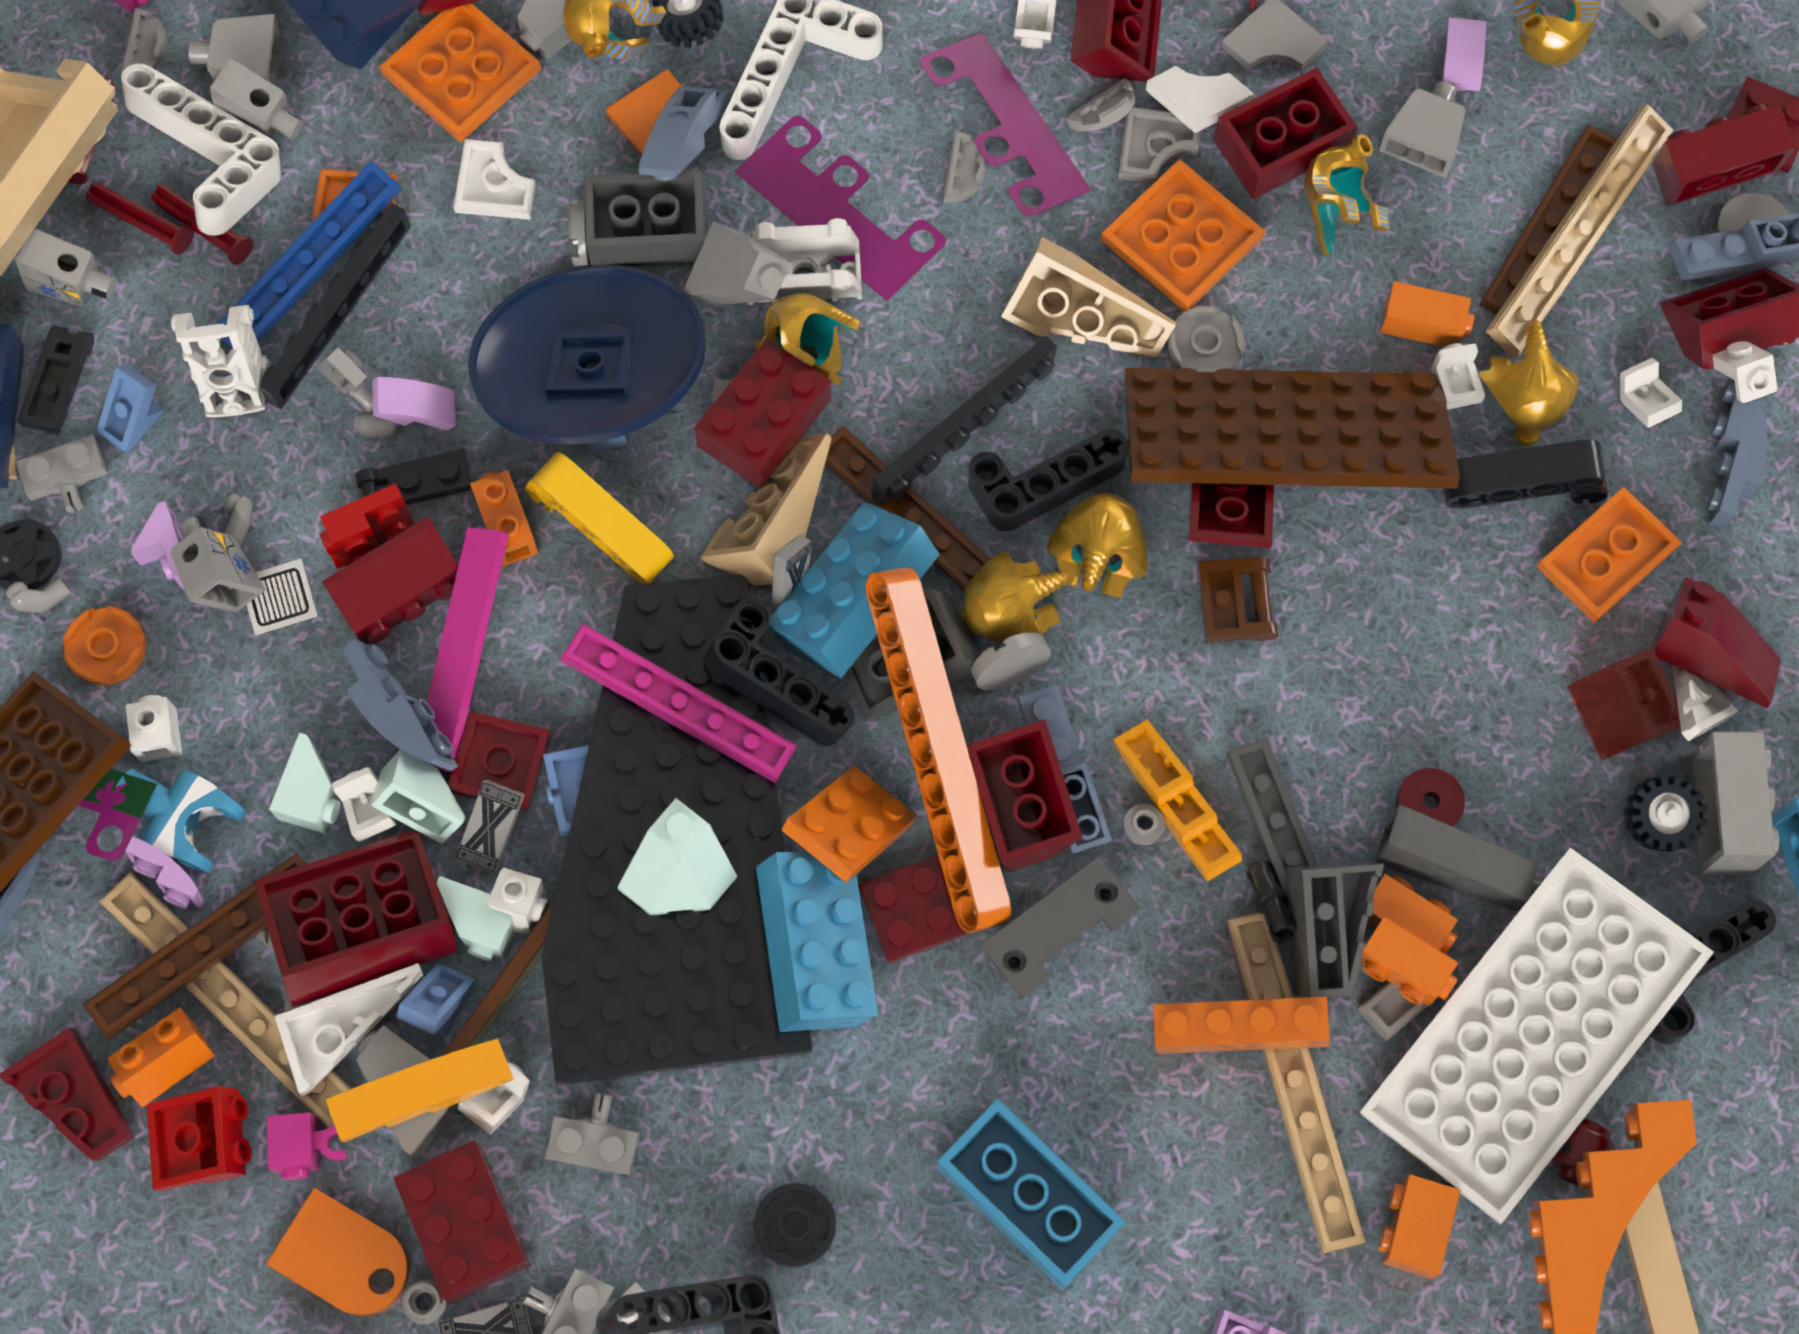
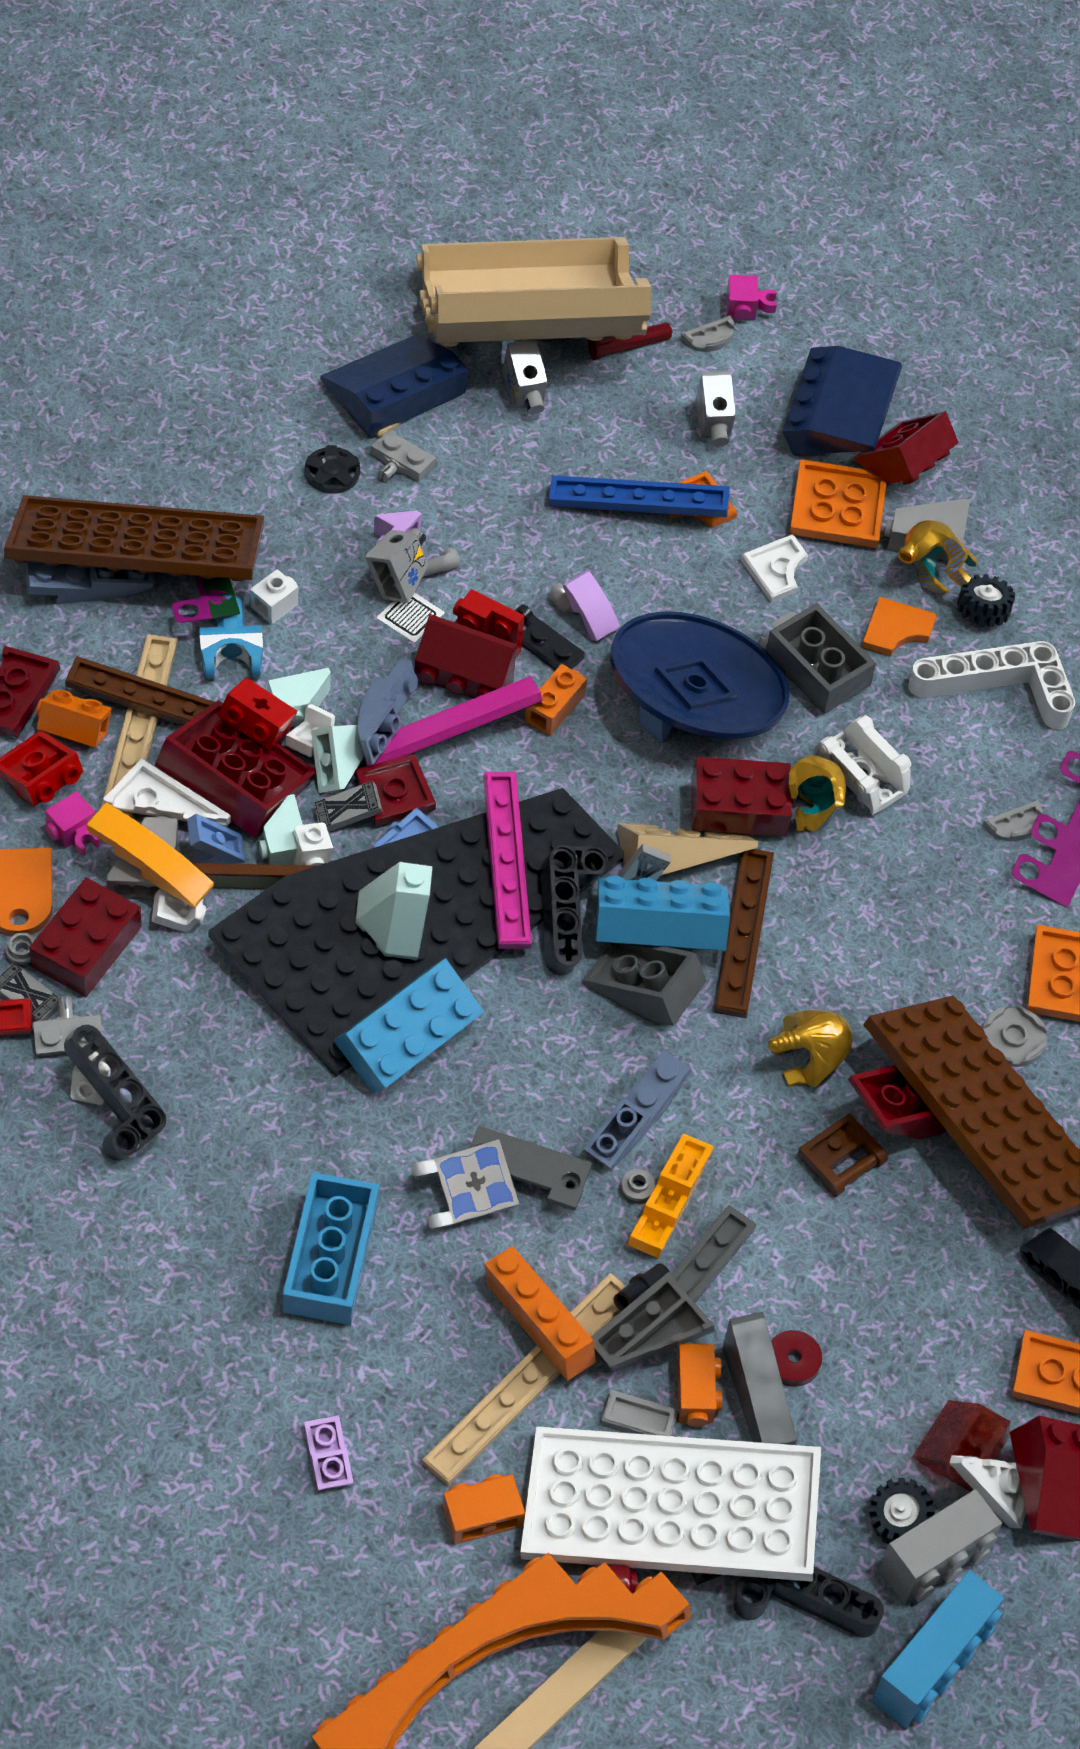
camera: 50 degrees right, 15 degrees down
(34, 600) = (308, 491): light grey arm -> none
(55, 379) = (456, 418): black plate -> none
(114, 653) = (306, 551): orange tile -> none
(128, 408) = (467, 464): medium blue slope -> none
(172, 879) = (188, 656): lavender slope -> none
(176, 205) = (617, 458): dark red axle -> none
(177, 237) = (598, 424): dark red axle -> none
(243, 361) = (539, 499): white piece -> none
(245, 156) = (680, 424): white beam -> none
(248, 40) = (753, 384): light grey torso -> none
(308, 850) = (257, 713): none -> red brick
(342, 296) = (622, 530): black plate -> none
(346, 374) = (580, 555): light grey plate -> none
(593, 1141) = (189, 983): light grey plate -> none
(599, 517) = (596, 748): yellow beam -> none
(680, 131) = (892, 635): sand blue slope -> none
(734, 269) = (824, 718): light grey slope -> none
(795, 1225) = (215, 1129): black wheel -> none
(815, 200) = (919, 740): magenta piece -> none
(849, 823) = (501, 1000): orange plate -> none
(911, 909) = (474, 1079): dark red plate -> none
(938, 749) = (588, 1019): orange beam -> none
(956, 428) = (833, 916): black plate -> none
(1003, 598) = (724, 1000): pearl gold piece -> none
(1011, 664) = (685, 1034): light grey tile -> none
(1024, 795) = (595, 1089): dark red slope -> none
(1045, 995) = (472, 1182): none -> light grey flag
(1048, 473) = (839, 989): black beam -> none
(1076, 300) = (976, 933): tan wedge -> none
(1408, 963) = (662, 1394): orange brick -> none

